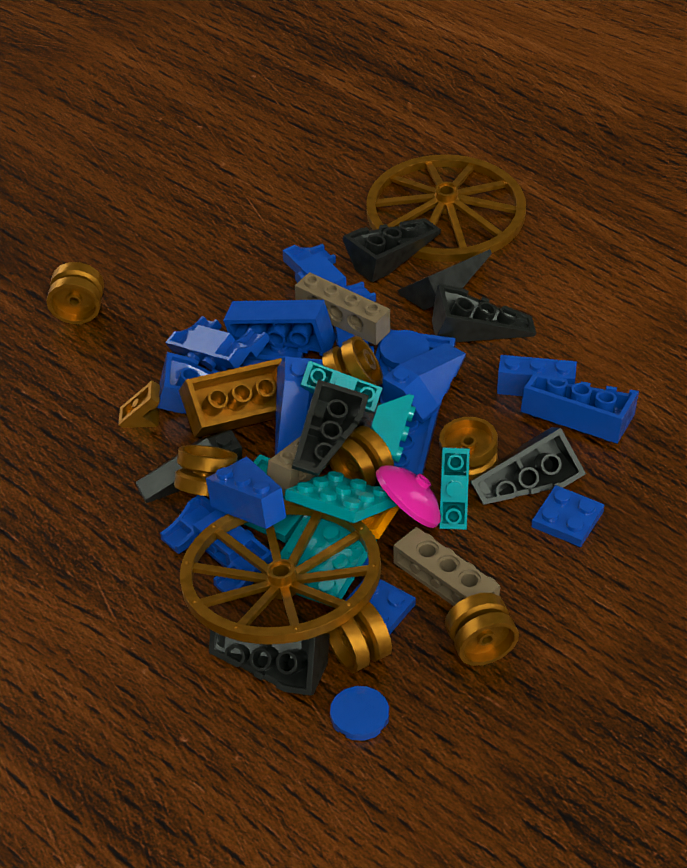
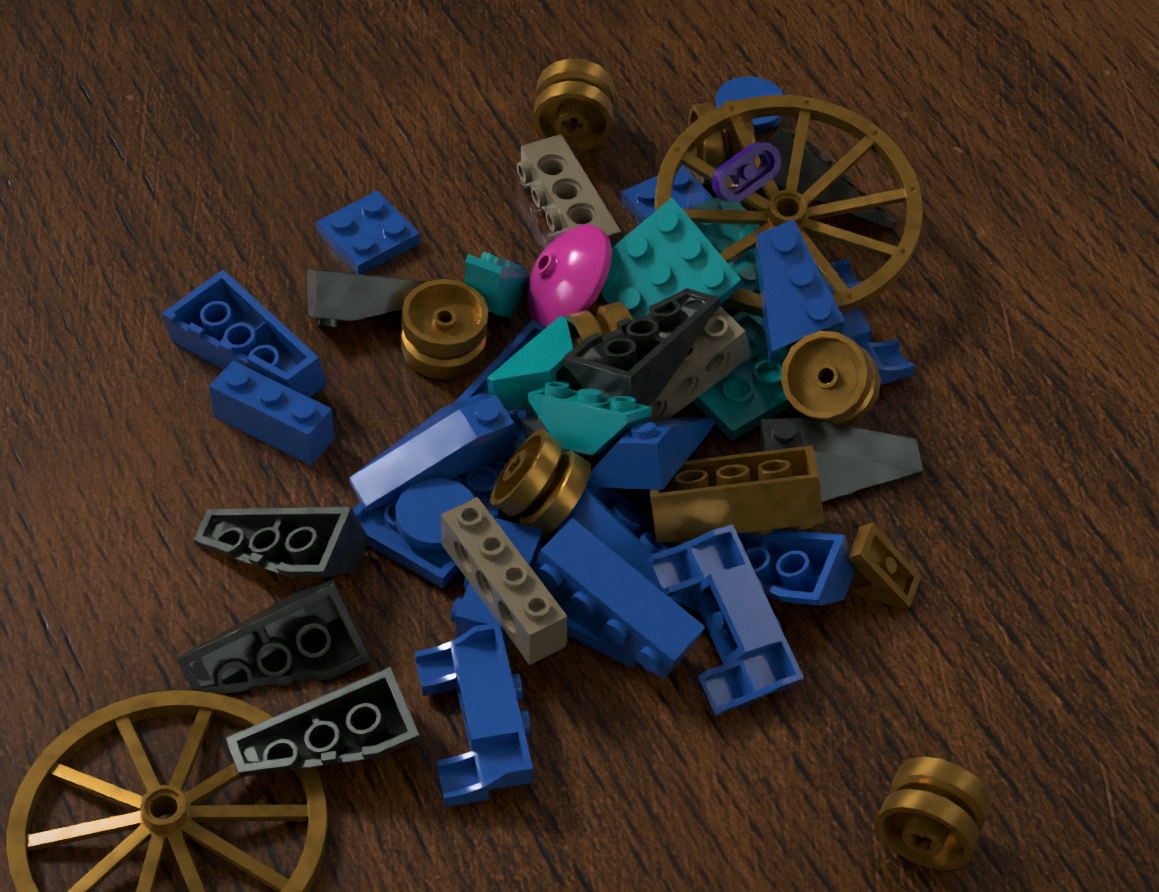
camera: 160 degrees left, 5 degrees up
(321, 556) = (744, 174): none -> dark purple plate

